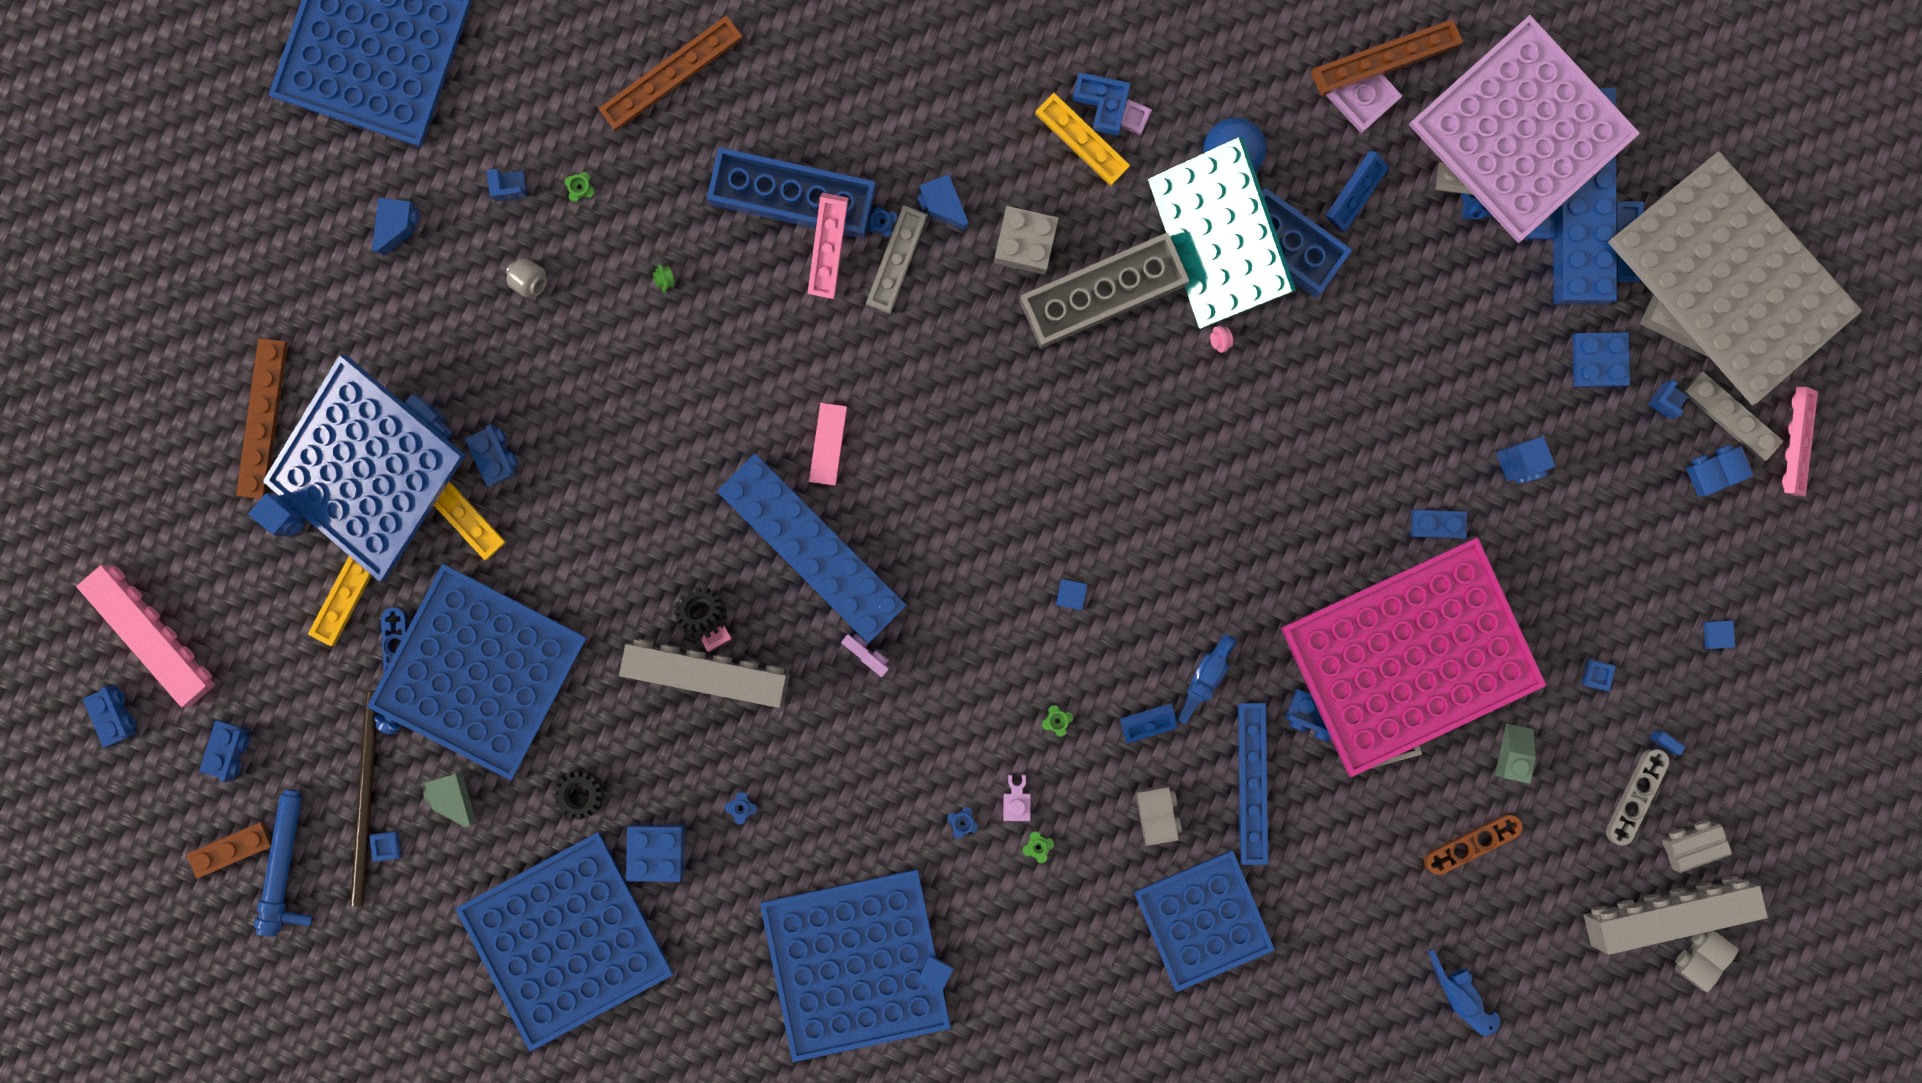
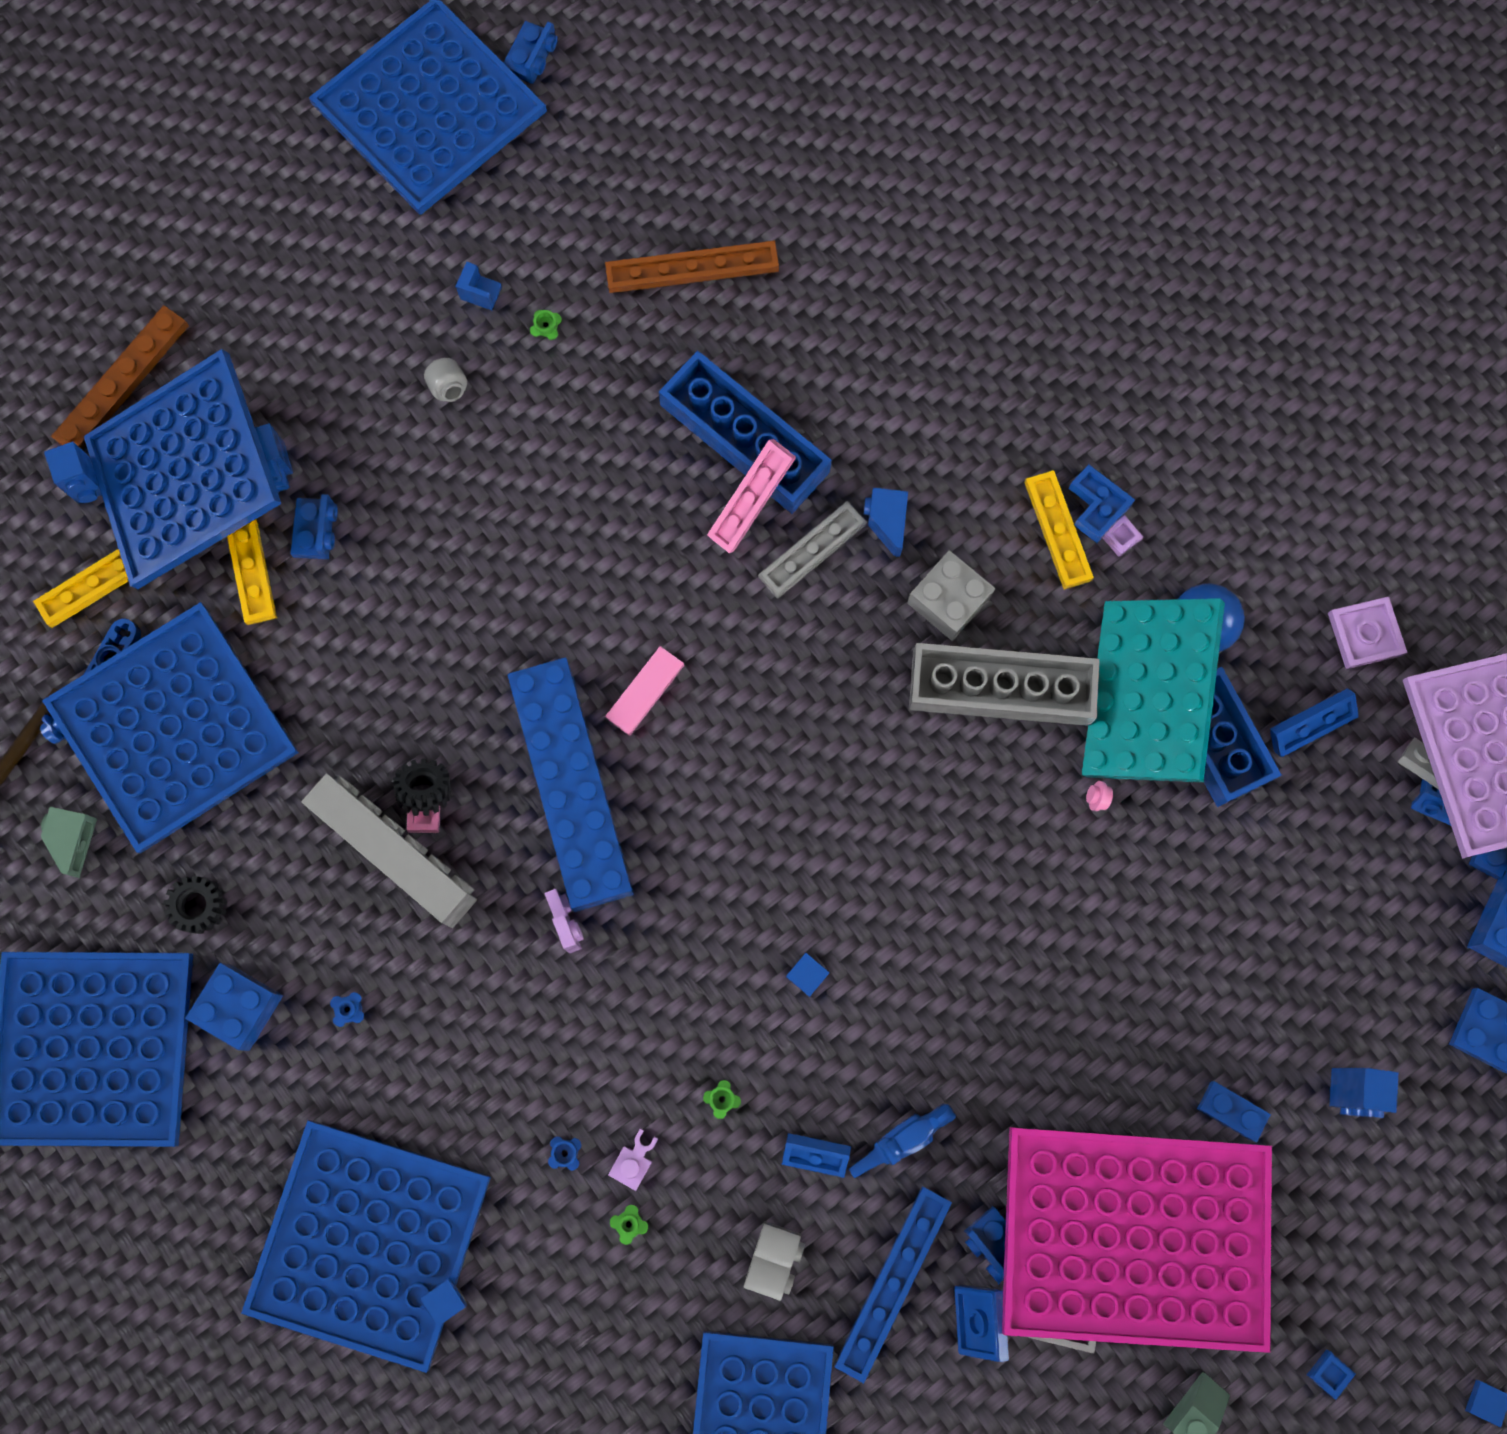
camera: 30 degrees right, 10 degrees down
(393, 224) = (351, 268): blue slope -> none
(663, 278) = (576, 447): bright green plate -> none
(875, 221) = (815, 498): blue plate -> none
(1330, 777) = (980, 1323): none -> blue tile
(1386, 57) = (1410, 606): dark orange plate -> none

